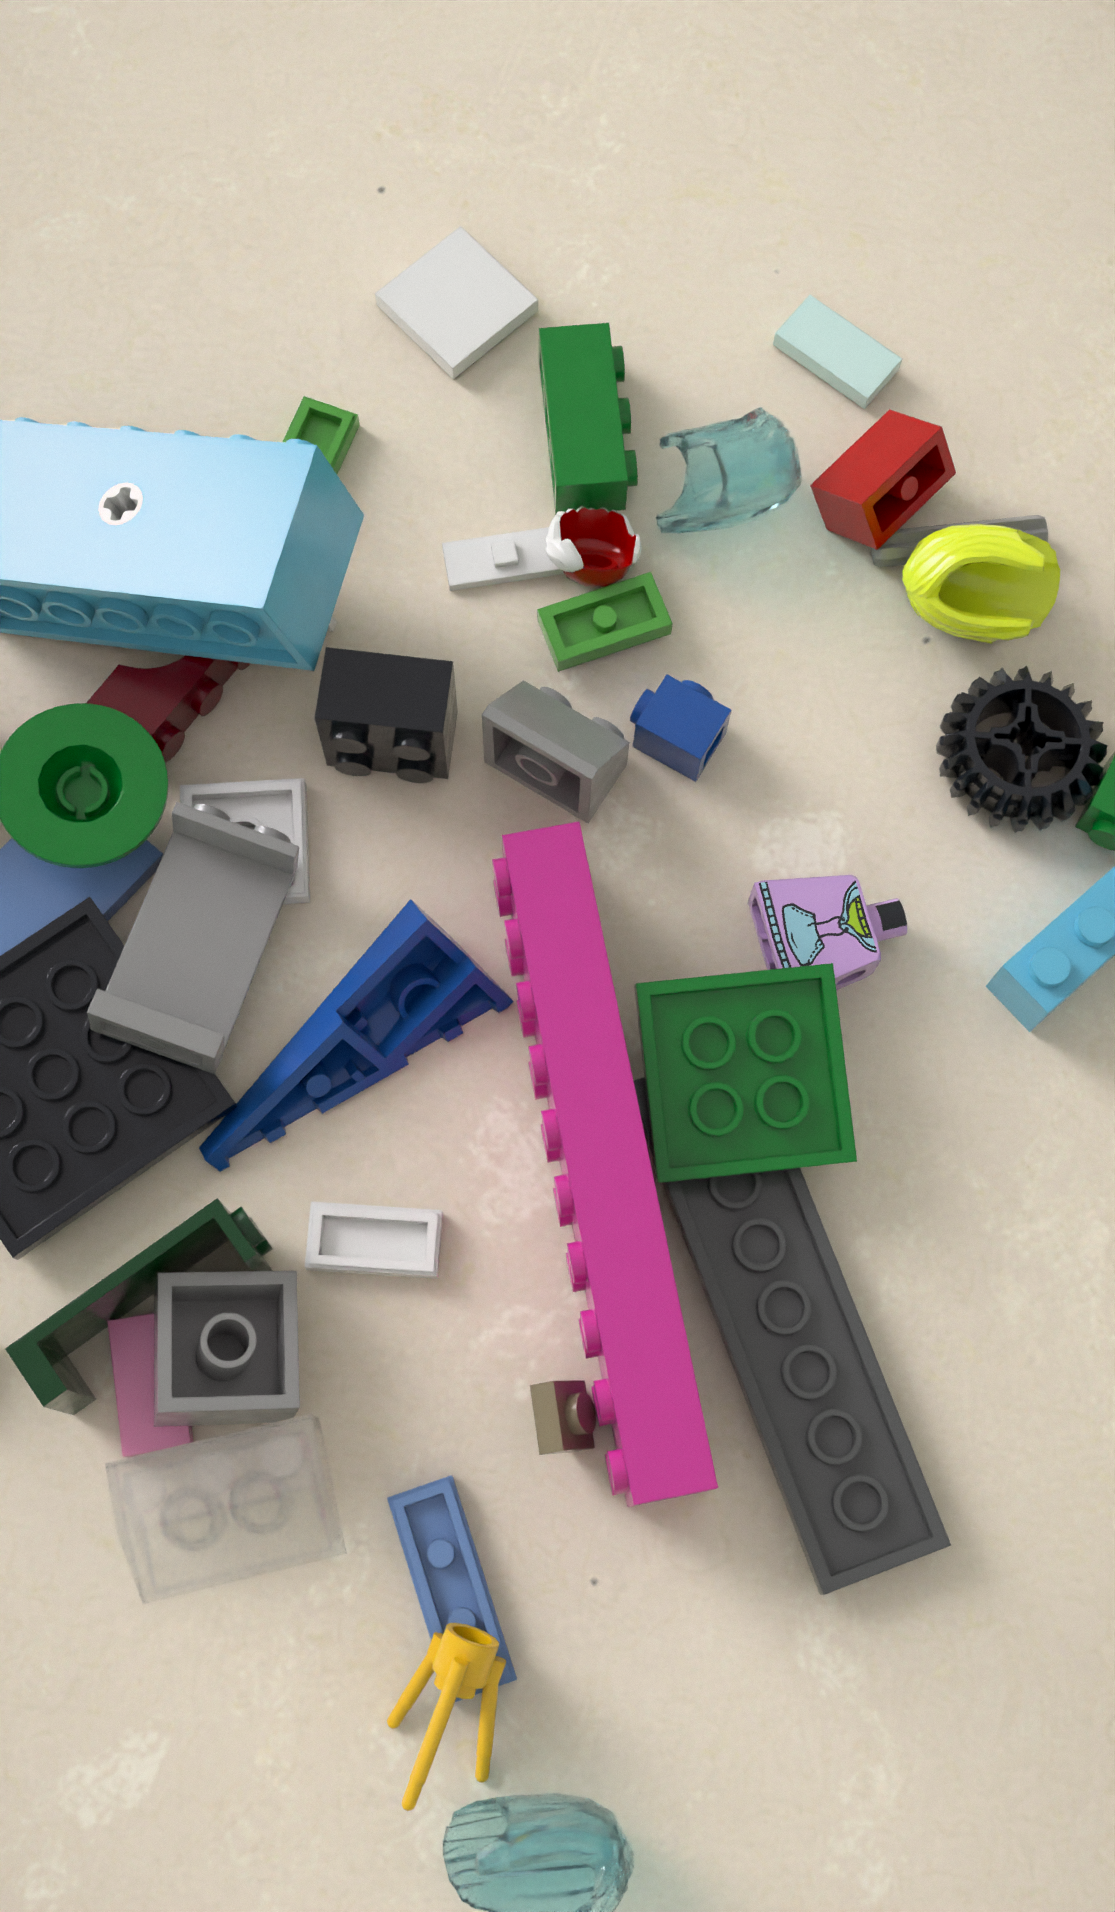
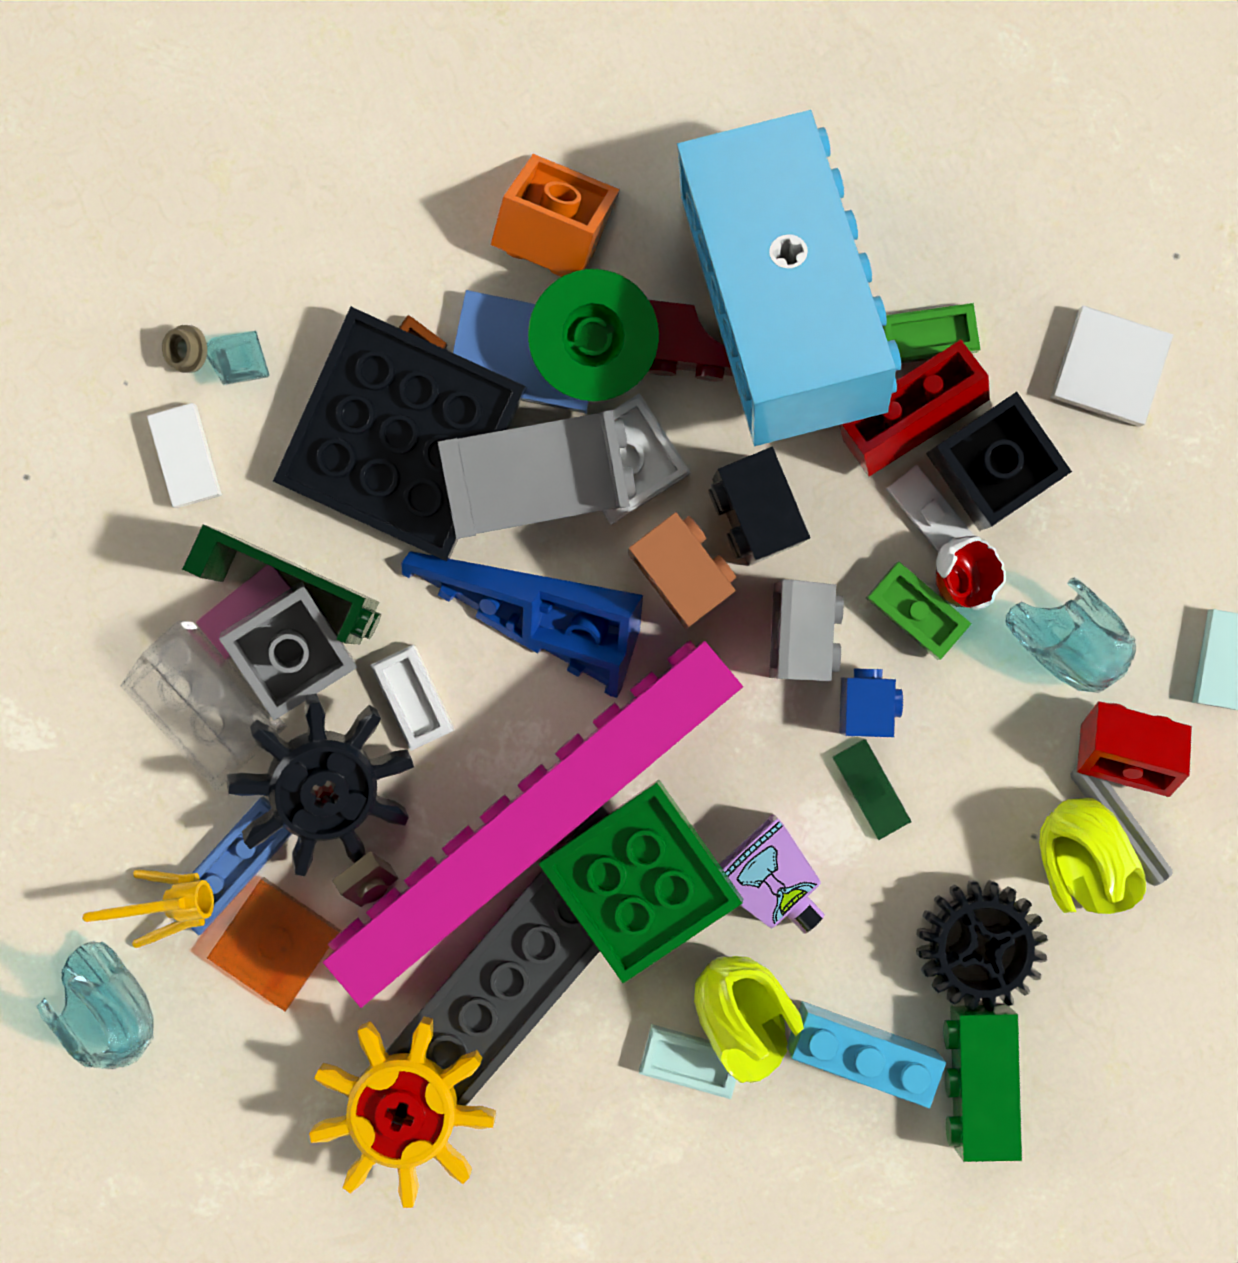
camera: 60 degrees right, 15 degrees up
(376, 1408) = (313, 761): none -> black gear
(381, 471) = (922, 407): none -> red brick
(407, 834) = (682, 569): none -> nougat brick
(489, 451) = (999, 462): none -> black brick
(581, 1588) = (273, 944): none -> clear orange tile
(586, 417) = (1068, 512): green brick -> none
(778, 779) = (871, 789): none -> clear green piece
(919, 1525) = (429, 1117): none -> yellow gear
(961, 1051) = (745, 1016): none -> neon yellow hair
(993, 1149) = (685, 1062): none -> light aqua tile

